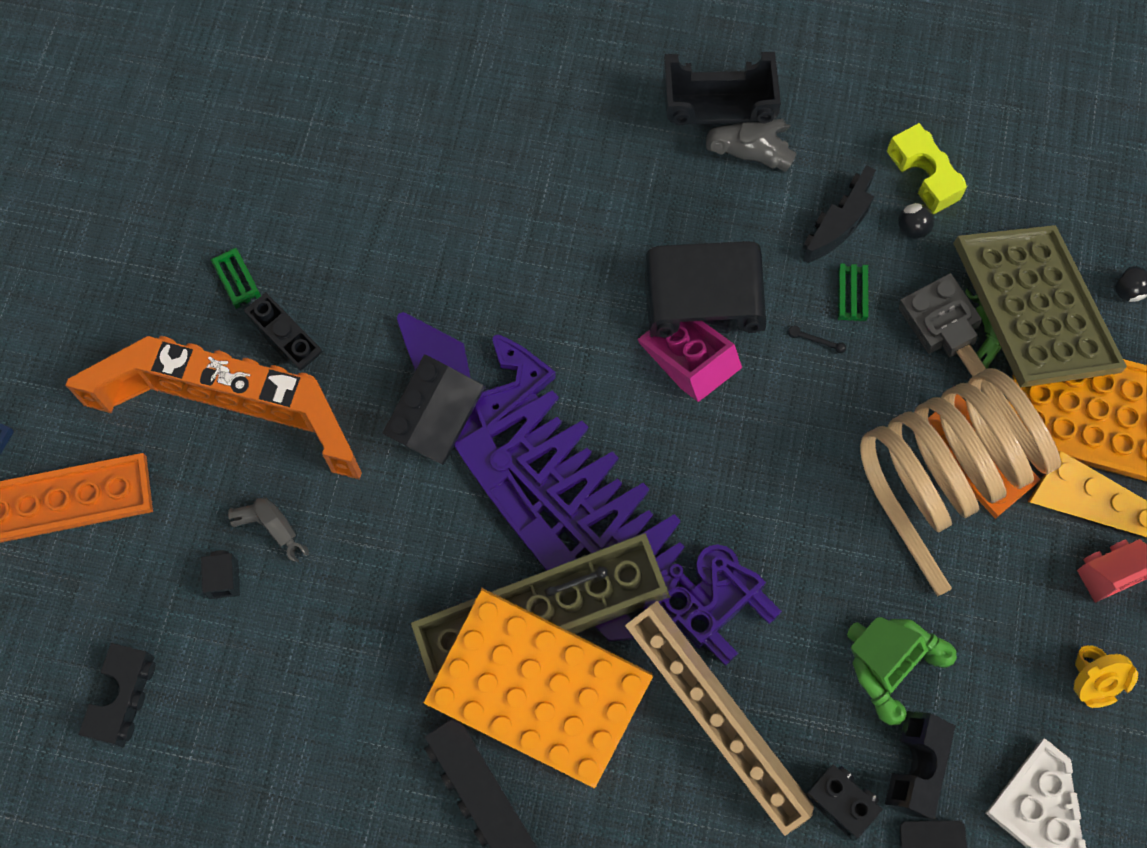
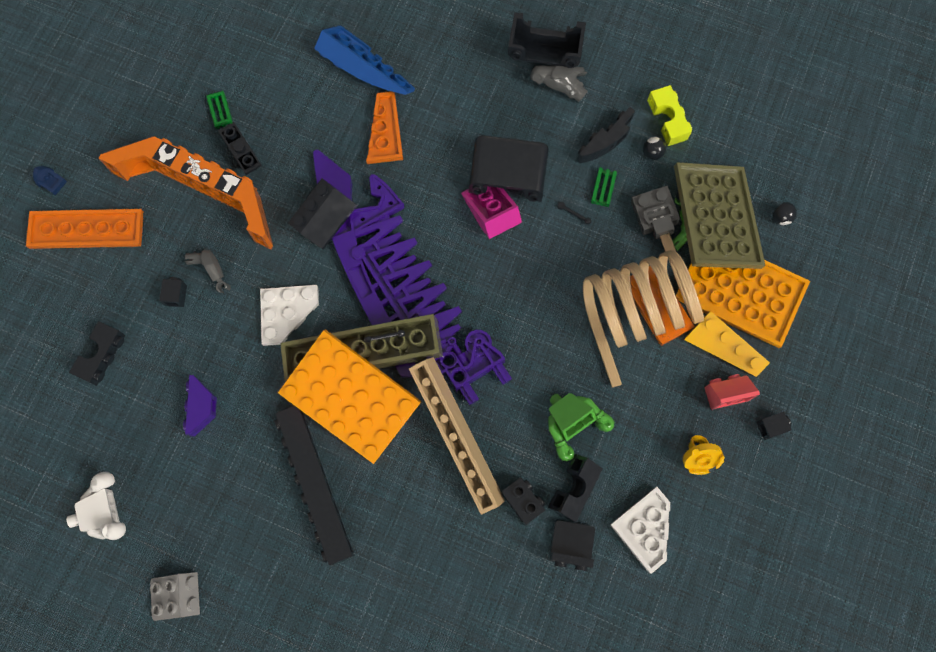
camera: 10 degrees right, 5 degrees up
(298, 749) = (199, 406): none -> dark purple slope
(403, 571) = (285, 310): none -> white plate
(432, 164) = (355, 57): none -> blue wedge
(502, 268) = (385, 132): none -> orange wing

